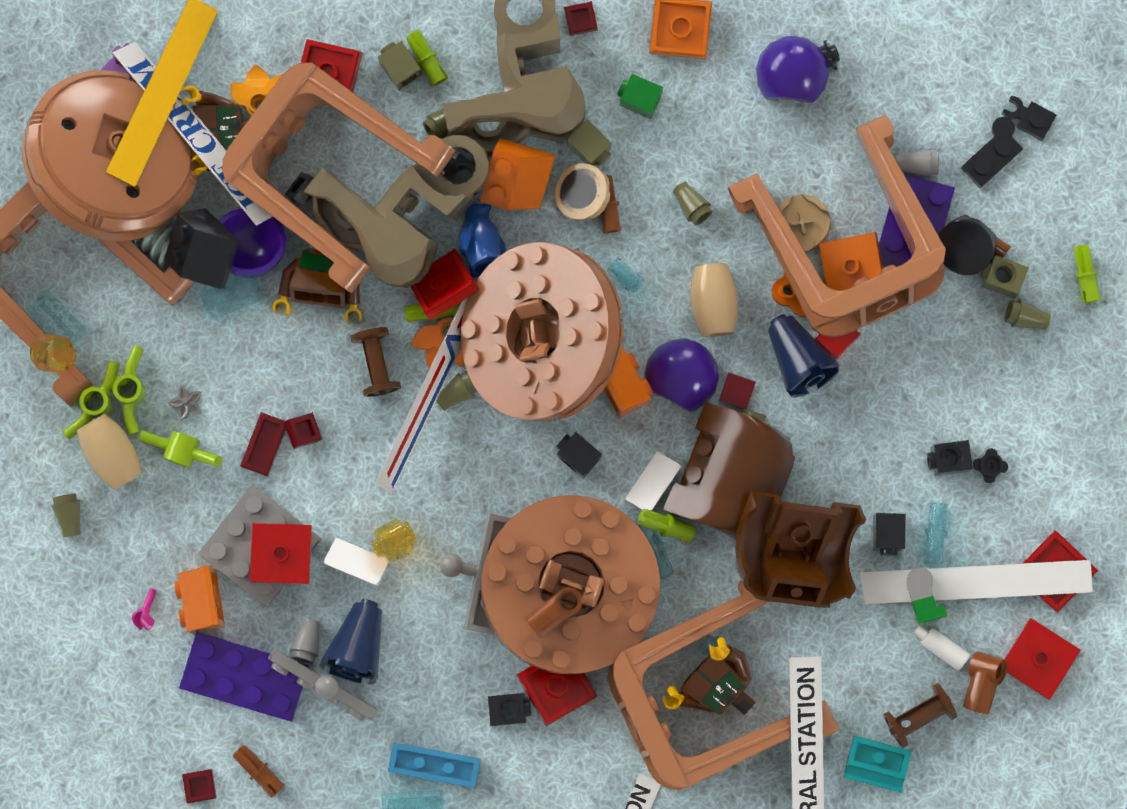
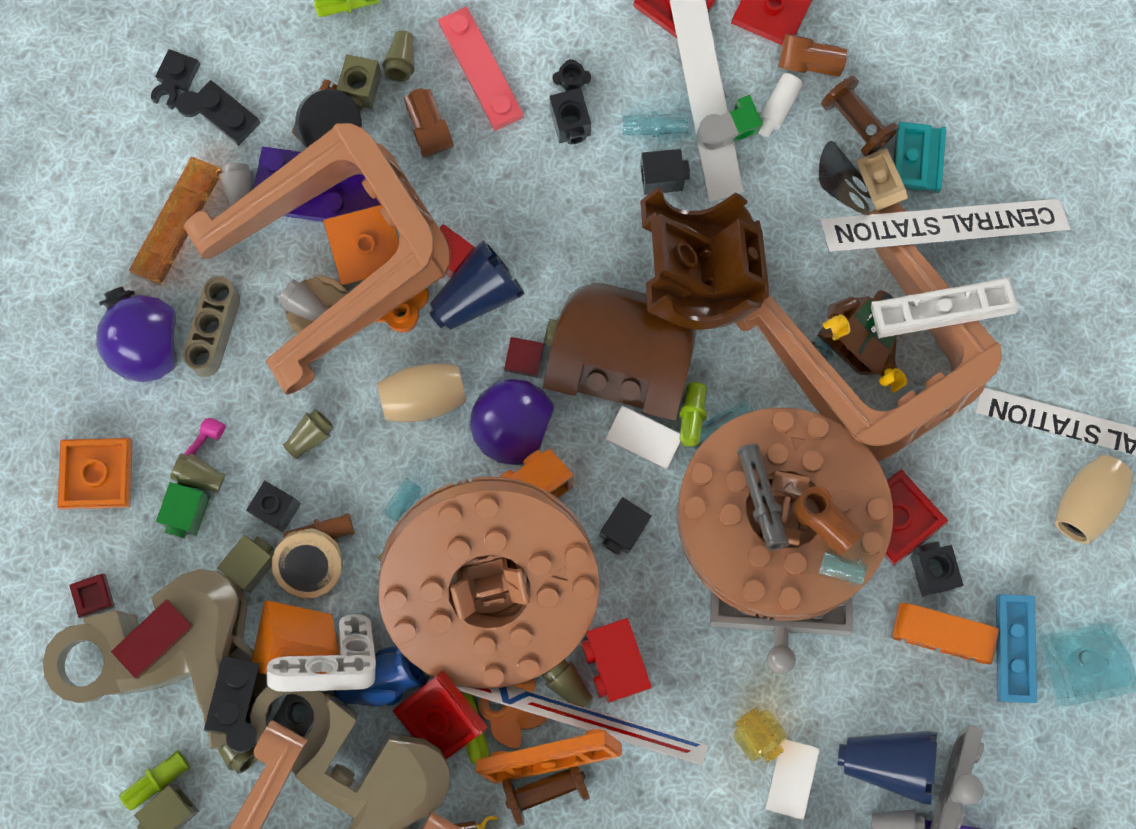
camera: 100 degrees left, 5 degrees down
(399, 365) = (545, 758): none -> orange plate
(454, 707) = (945, 631): none -> orange beam
(467, 429) = (616, 660): none -> red brick
(475, 122) = (231, 703): none -> black hinge
(492, 164) = (344, 672): none -> white beam
(514, 619) = (843, 569): none -> clear light blue pin
(532, 64) = (152, 639): none -> dark red tile
(571, 563) = (773, 534): none -> dark grey pin
(633, 169) = (273, 506): none -> black brick
(669, 109) = (195, 473): none -> olive cone
(707, 123) = (208, 428): none -> dark pink hand
(726, 747) = (944, 307): none -> white plate
(786, 120) = (207, 312): none -> dark tan beam
(805, 209) = (302, 301): none -> light grey cone
(857, 723) = (881, 179): none -> tan plate
(874, 684) = (833, 170): none -> black piece
(900, 111) = (168, 232): none -> clear orange plate
(954, 334) = (430, 130): none -> dark orange piece
(1009, 386) = (480, 68): none -> coral plate

